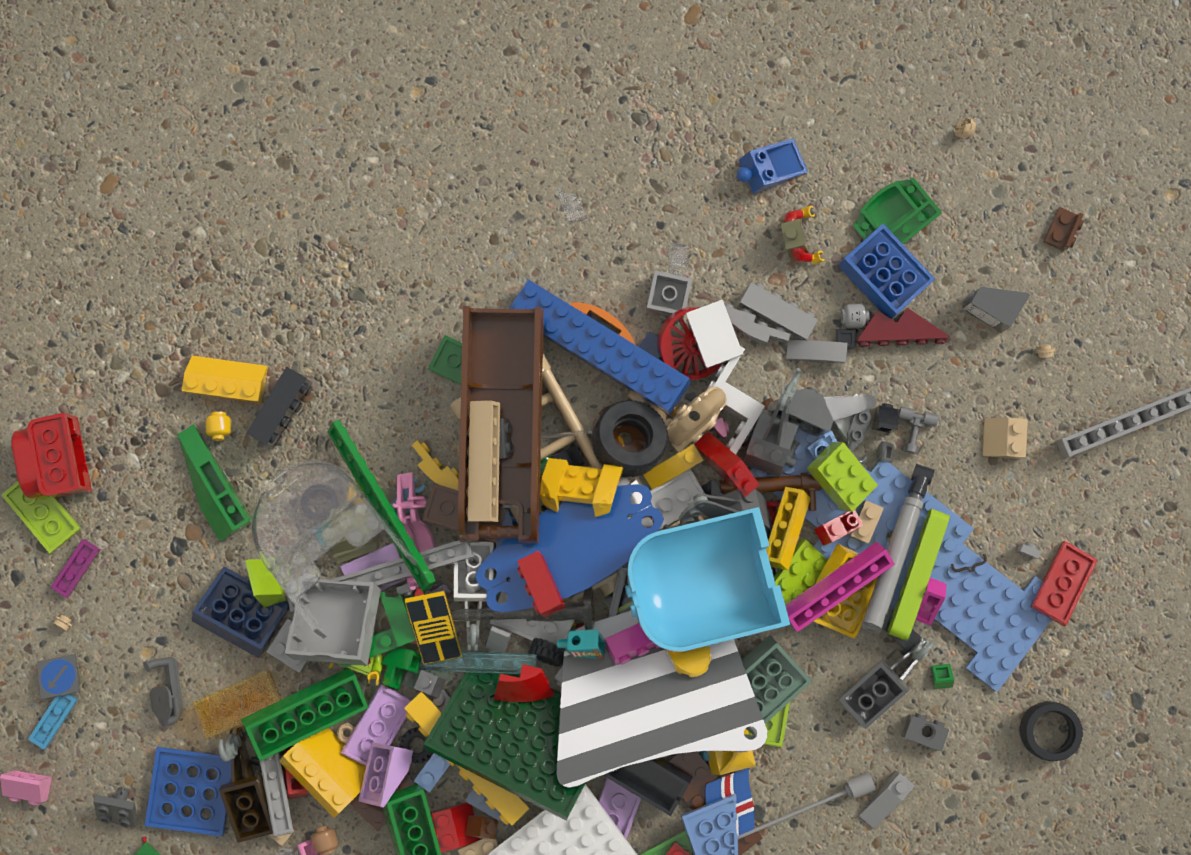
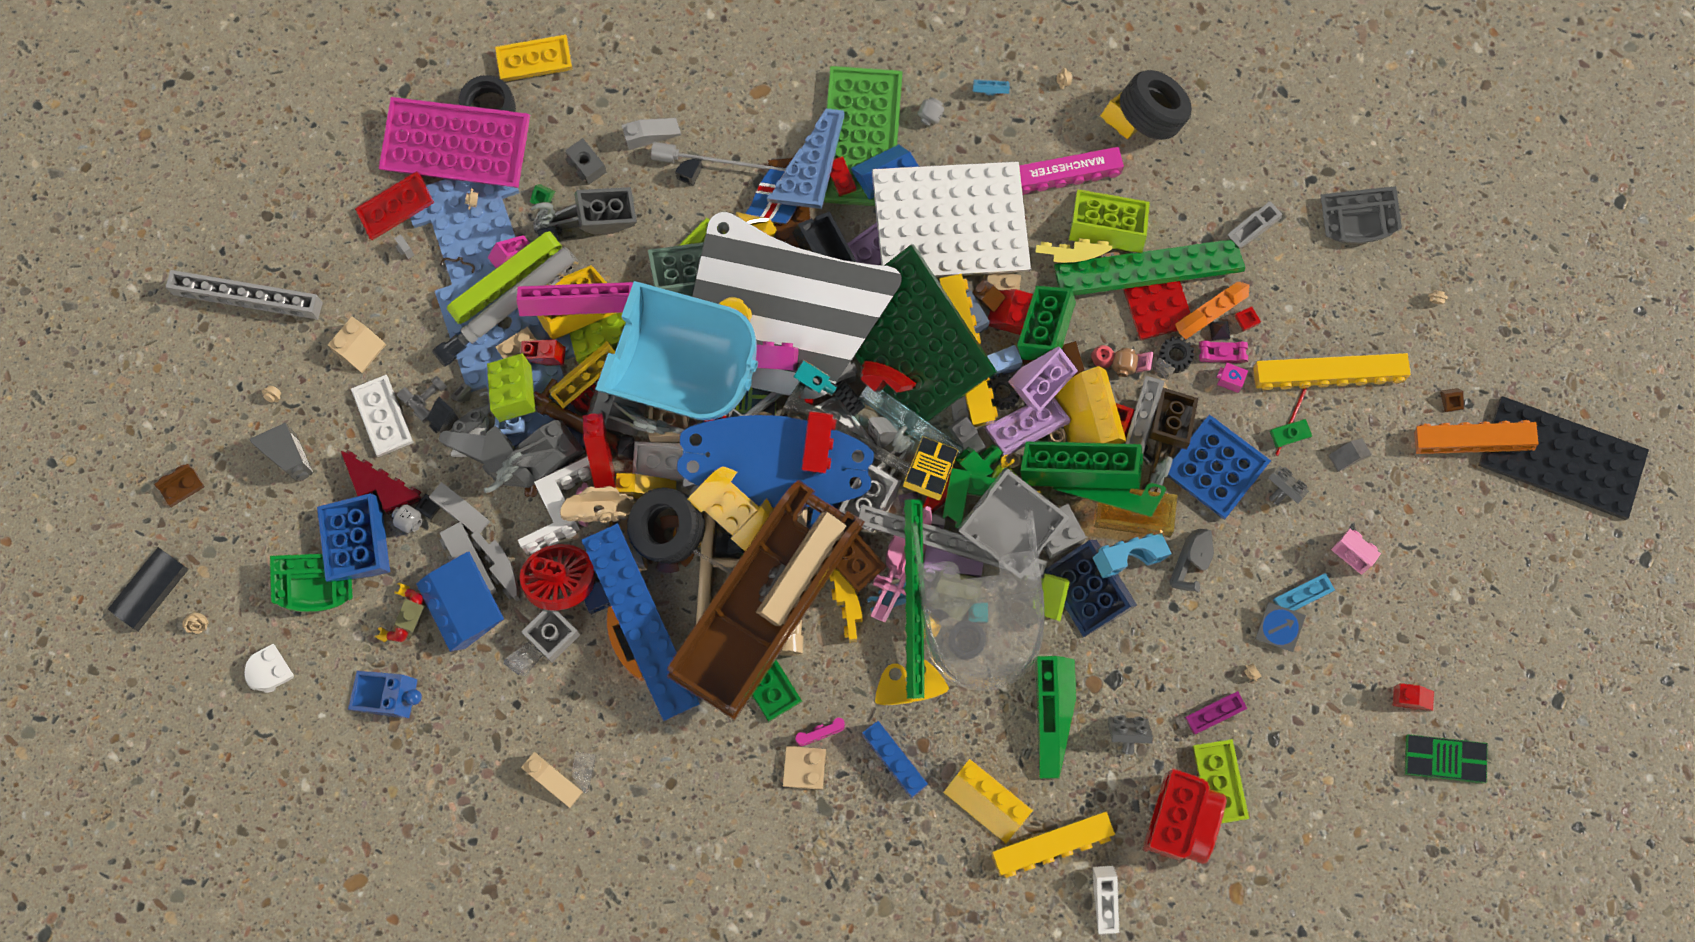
camera: 145 degrees left, 10 degrees down
(84, 359) = (1106, 899): none -> white slope
(138, 506) = (1129, 732): none -> dark grey plate
(151, 377) = (1052, 844): none -> yellow brick
(218, 426) = (1018, 761): yellow head -> none
(227, 642) = (1149, 549): none -> dark azure arch
(250, 701) = (1120, 498): none -> green piece
(280, 407) = (954, 741): black brick -> none
(321, 365) = (894, 759): none -> blue brick
(352, 830) = (1097, 358): none -> coral plate
(356, 423) = (894, 691): none -> yellow piece
(371, 687) = (1017, 461): none -> tan plate
(392, 316) = (804, 767): none -> tan plate
(395, 351) = (820, 732): none -> dark pink plate
(590, 182) = (552, 779): none -> tan slope
(714, 333) = (534, 567): white tile -> none
(760, 272) = (460, 602): none -> blue slope
(826, 781) = (689, 171): none -> black brick
(880, 127) = (267, 670): none -> white slope
(939, 391) = (382, 415): none -> white tile
(999, 630) = (471, 199): none -> tan plate
(1025, 131) = (148, 589): none -> black slope
(1042, 805) = (533, 58): none -> yellow plate
(1052, 673) = (454, 142): none -> dark pink plate

